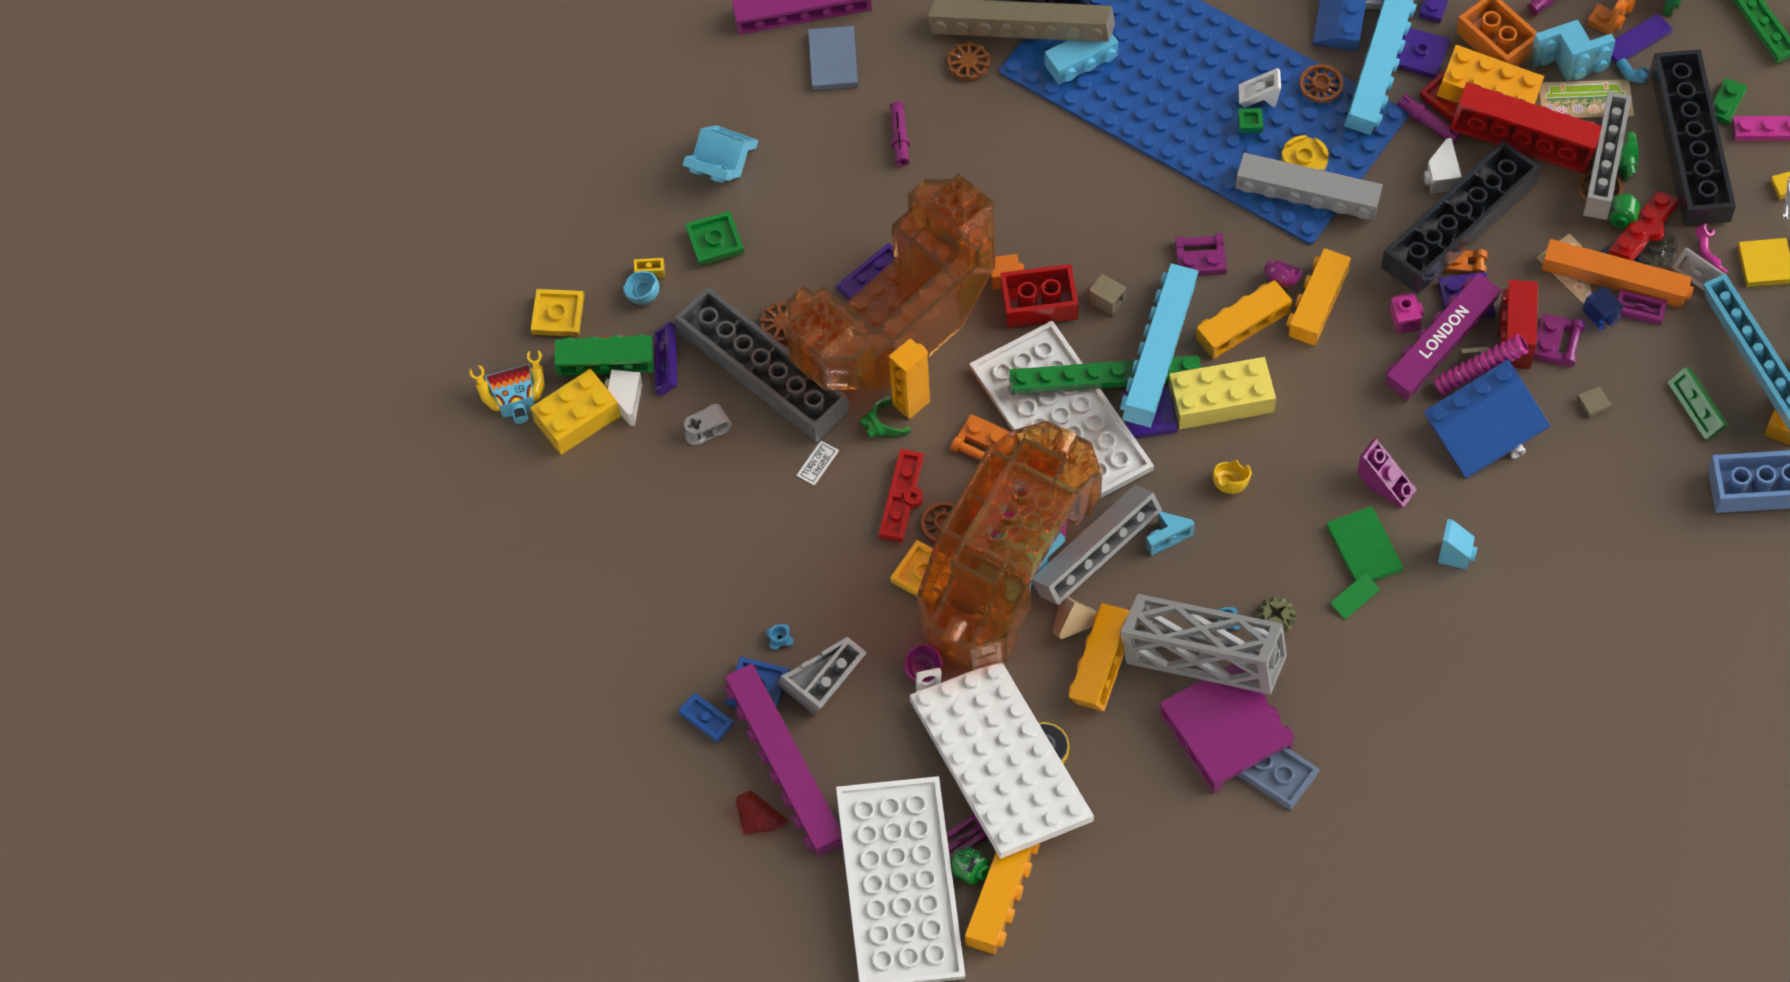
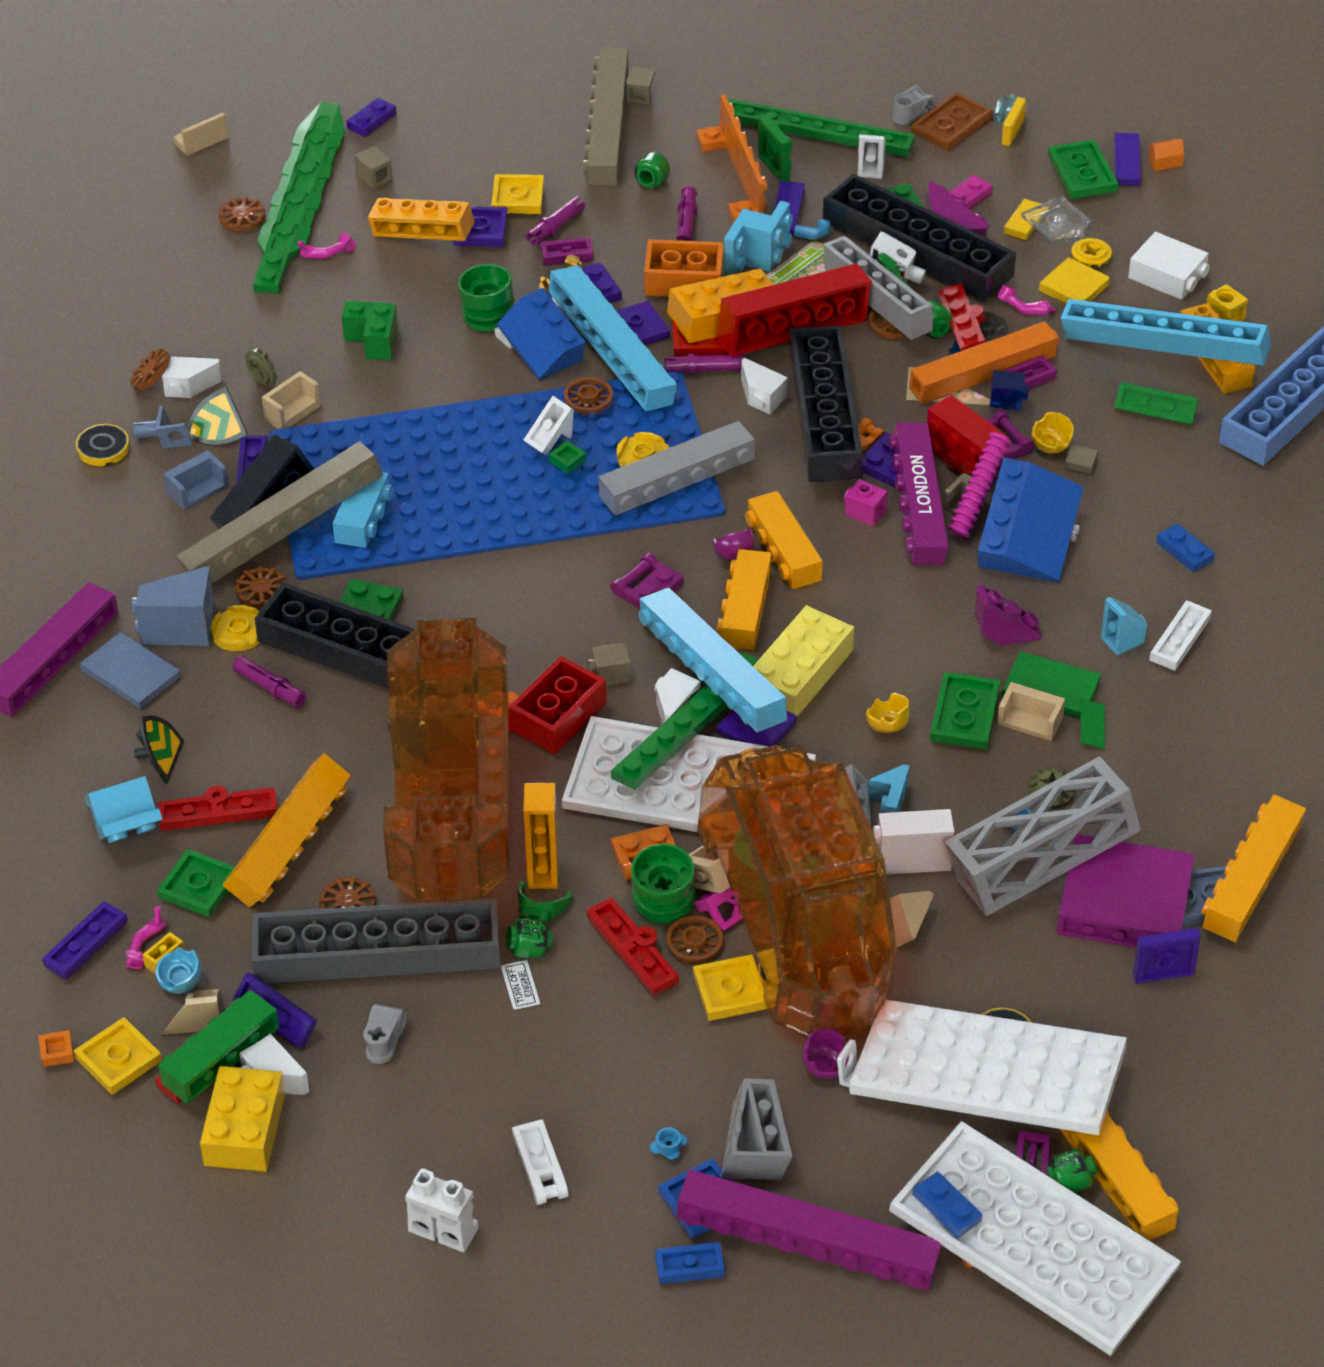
camera: 50 degrees left, 15 degrees down
(513, 389) = (155, 1150): torso -> none
(531, 279) = (56, 1048): none -> orange plate
(607, 564) = (443, 1208): none -> white hips
(617, 222) = (84, 940): none -> dark purple plate
(629, 321) = (196, 1012): none -> tan slope
(661, 246) = (153, 927): none -> dark pink piece
(699, 582) = (539, 1161): none -> white plate
(757, 814) = (839, 1302): clear red slope -> none
(778, 197) = (217, 808): none -> red hinge
(787, 126) = (160, 743): none -> shield
(795, 246) = (287, 830): none -> light orange brick
(848, 437) = (528, 938): none -> green head
(864, 817) = (947, 1204): none -> blue plate
(866, 272) = (377, 795): dark purple tile -> none
(895, 38) = (176, 609): none -> sand blue slope
(925, 80) = (235, 628): none -> yellow tile
(952, 467) = (663, 883): none -> green wheel
(974, 149) = (329, 633): none -> black brick
(1015, 128) = (373, 598): none -> green plate
(1100, 660) = (970, 920): light orange brick -> none
(1117, 347) = (673, 692): none -> white slope
(1132, 573) = (915, 840): none -> white brick
(1190, 788) = (1166, 955): none -> dark purple plate
(1285, 516) = (965, 710): none -> green plate
(1323, 782) = (1253, 867): none -> light orange brick
(1324, 553) = (1031, 711): none -> tan panel
(1491, 585) = (1180, 635): none -> white plate
(1580, 526) = (1185, 547): none -> blue plate
(1592, 366) = (1052, 433): none -> yellow hair
(1650, 143) = (901, 254): none -> white torso
(1696, 267) = (1031, 316): light grey plate -> none
(1737, 137) = (954, 209): none -> magenta slope
(1743, 43) = (871, 156): none -> white slope

